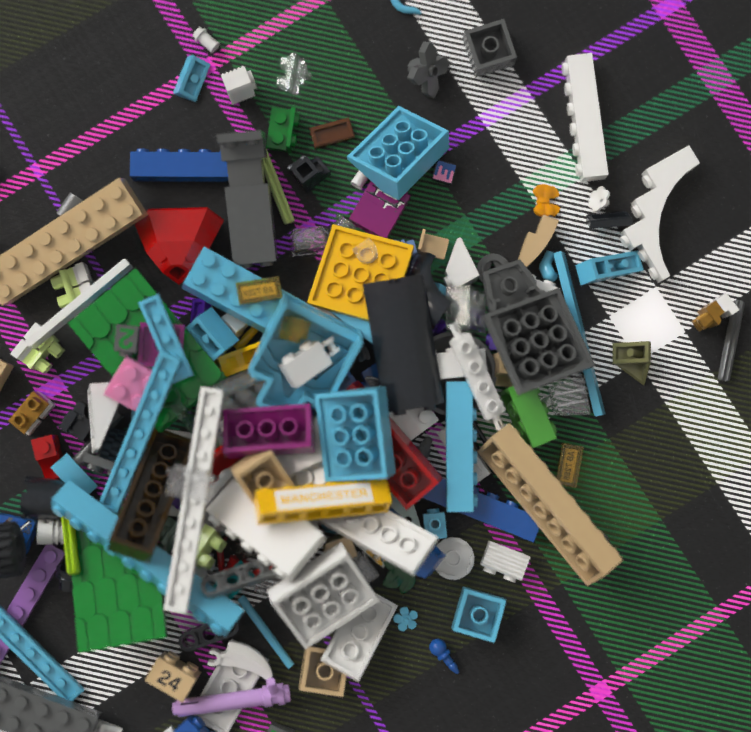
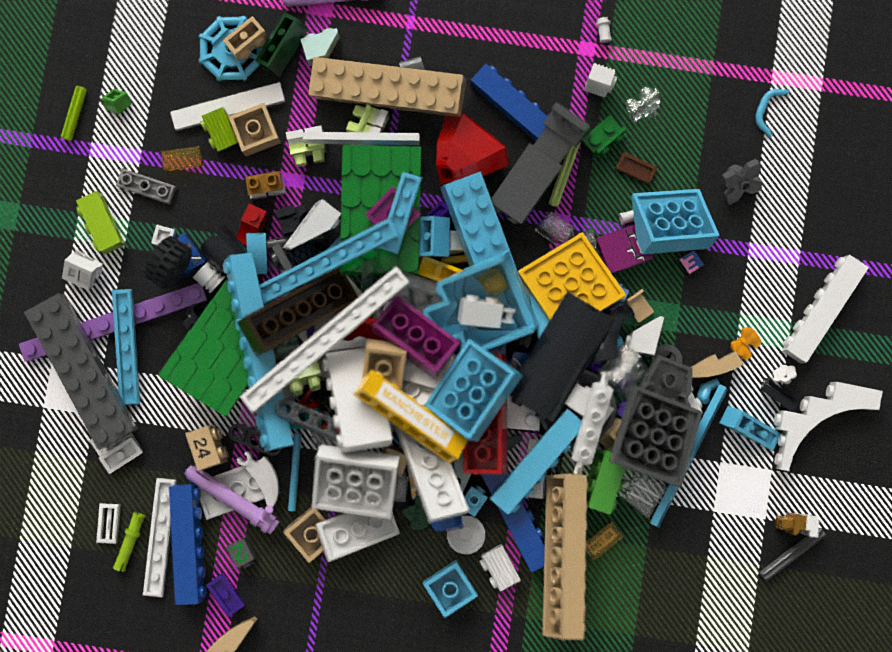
camera: 45 degrees right, 0 degrees up
(70, 547) = (213, 299): lime axle -> none
(126, 340) = (372, 191): dark grey brick -> none
(128, 383) = (348, 221): bright pink plate -> none
(190, 484) = (331, 327): clear bracket -> none
(191, 78) = (571, 48): medium azure slope -> none
(258, 290) = (491, 234): clear yellow tile -> none
(308, 172) = (596, 181): black brick -> none
(366, 251) = (589, 271): clear tile -> none
(405, 618) = (397, 547): medium azure plant -> none
(438, 648) = (402, 587): blue bar -> none
(489, 48) = (798, 202): dark grey brick -> none
(633, 358) = (712, 506): olive slope -> none

